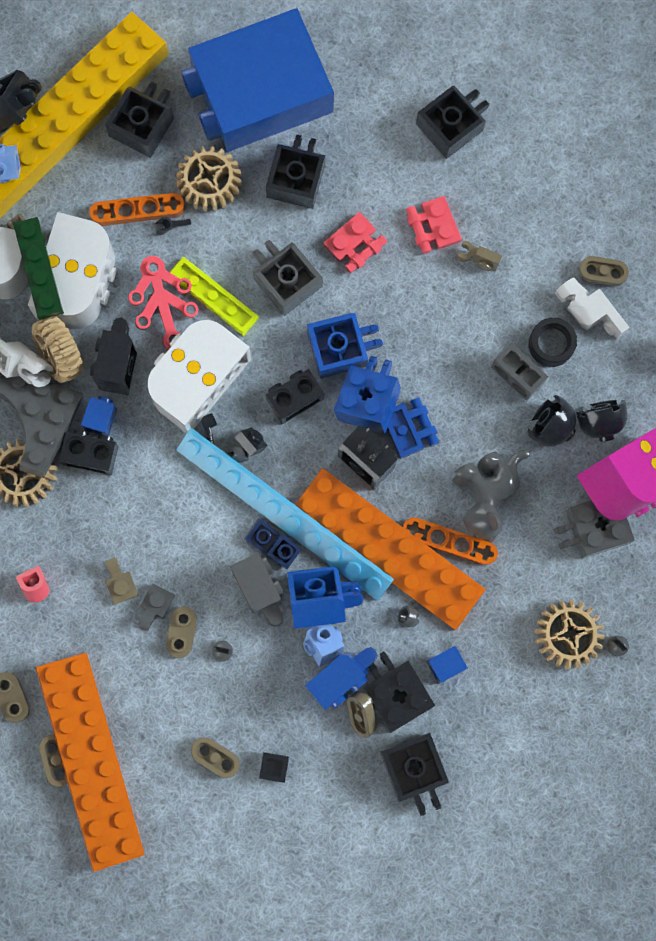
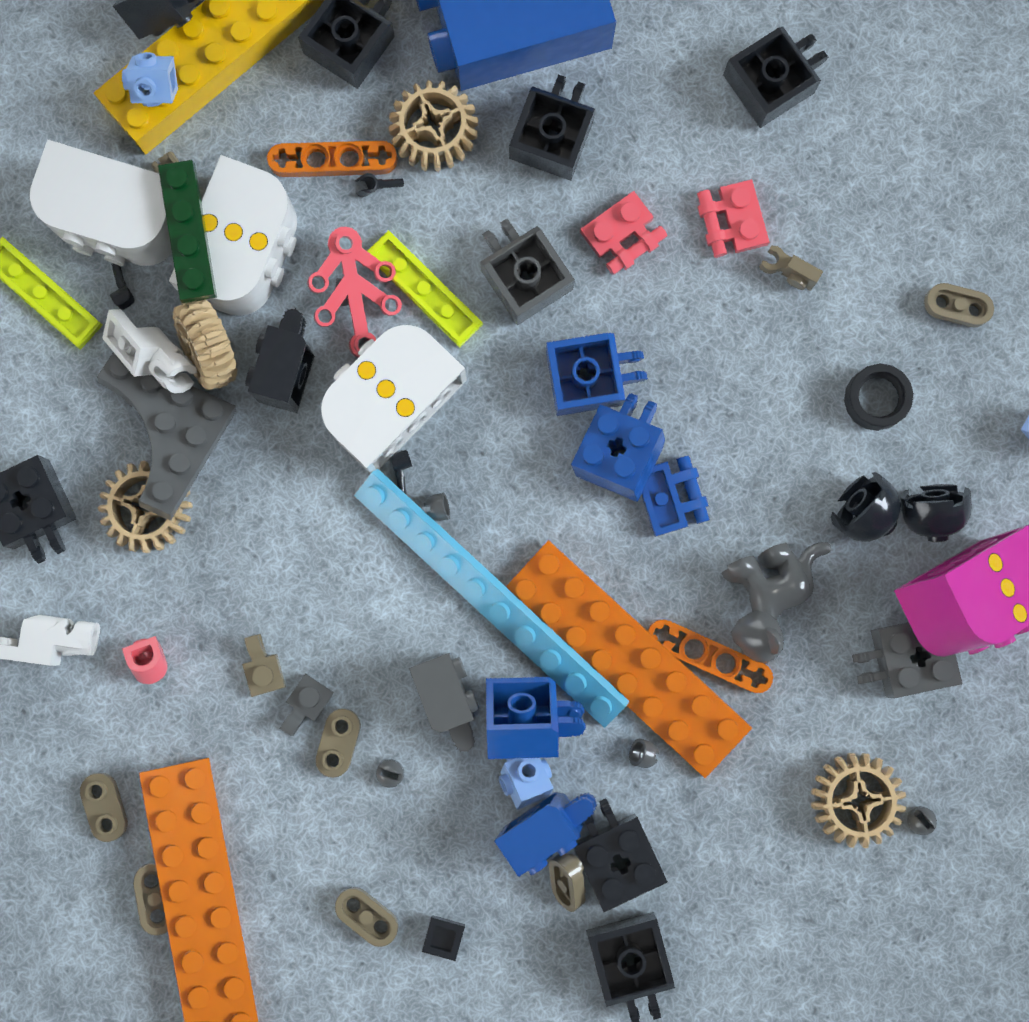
camera: 10 degrees right, 5 degrees up
(87, 458) = (234, 494): black brick -> none
(99, 416) = (255, 439): blue brick -> none
(251, 441) = (455, 494): black plate -> none
(272, 543) = (471, 635): dark blue slope -> none
(298, 401) = (524, 446): black brick -> none
(367, 456) = (611, 532): black hinge -> none
(447, 664) = (688, 825): blue panel -> none
(519, 371) = (829, 435): dark grey brick -> none
(591, 309) = (938, 356): white plate -> none

